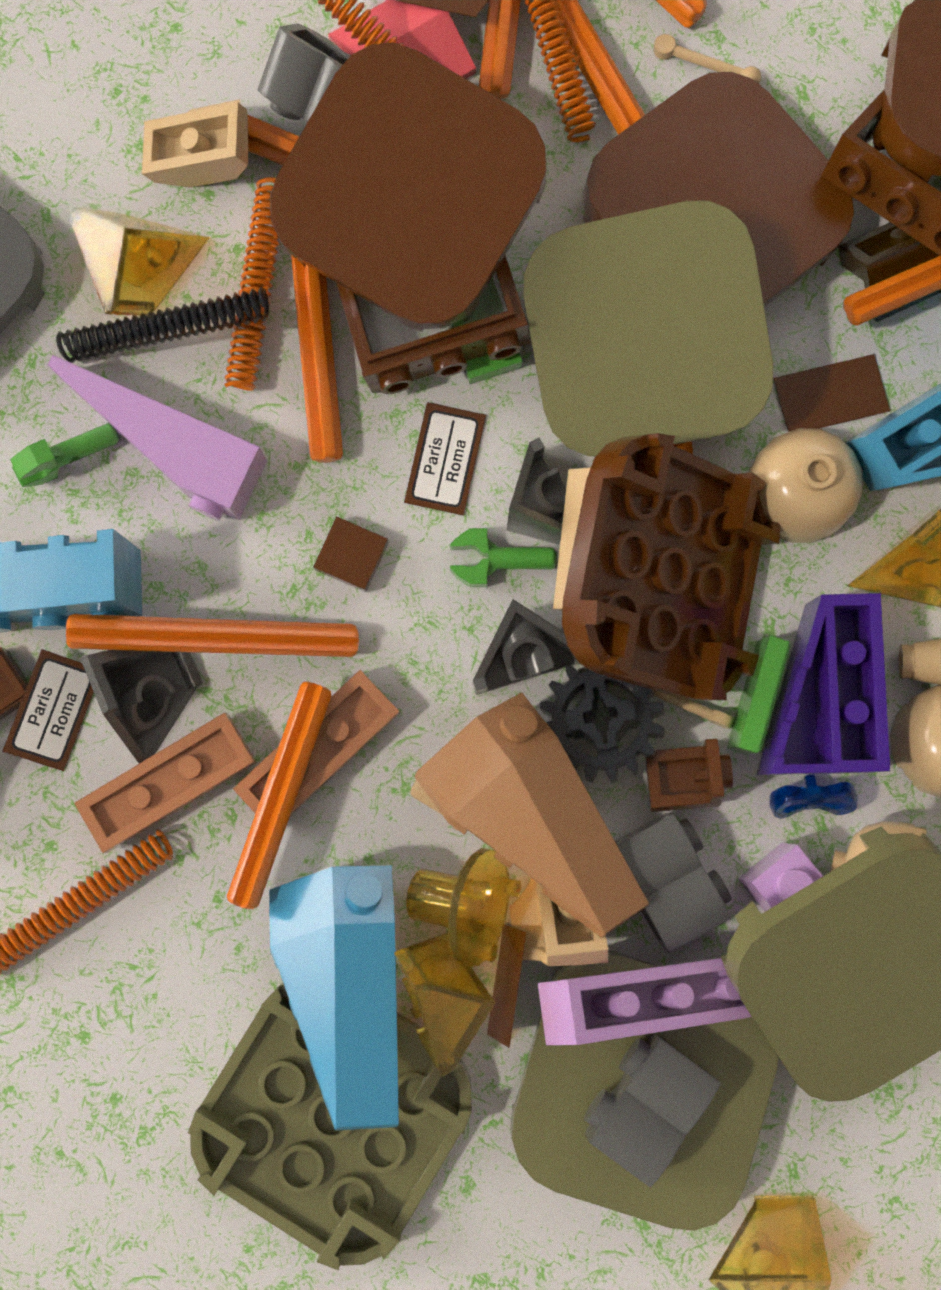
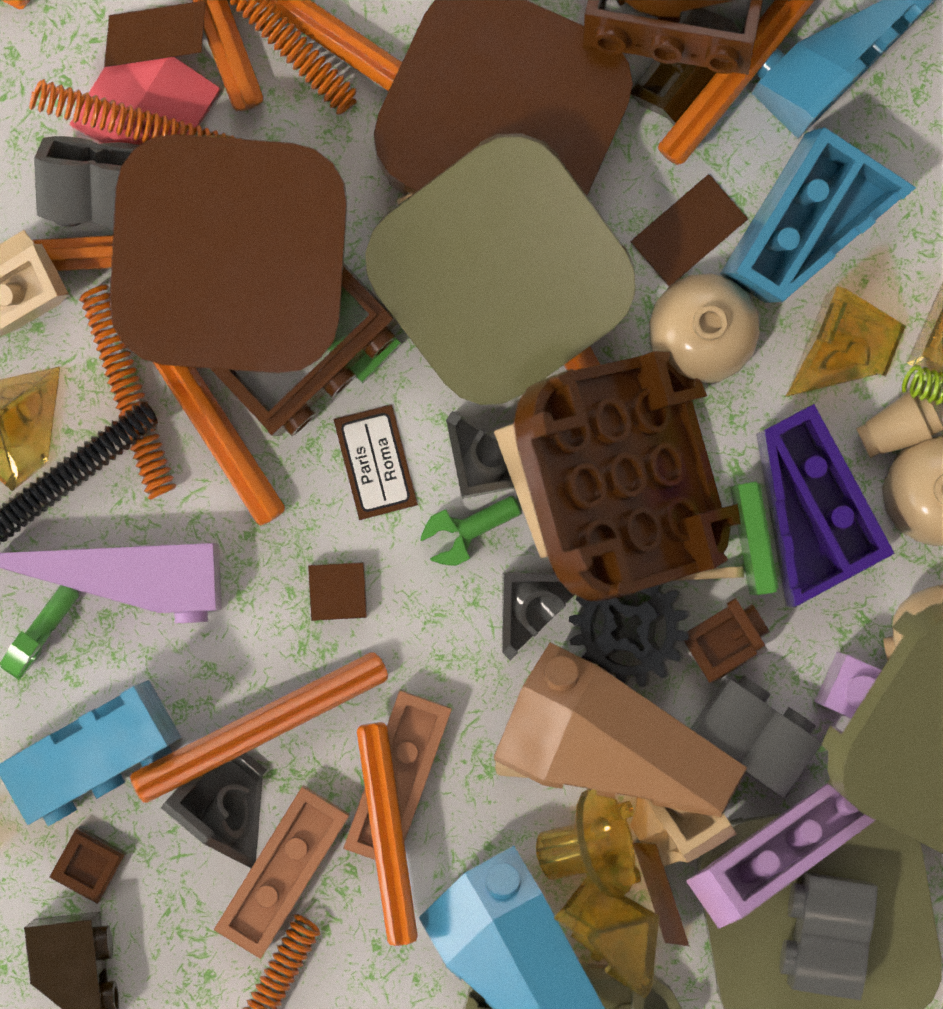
camera: 25 degrees left, 5 degrees up
(50, 711) = (148, 860): sticker -> none
(834, 798) = (862, 593): clear blue piece -> none

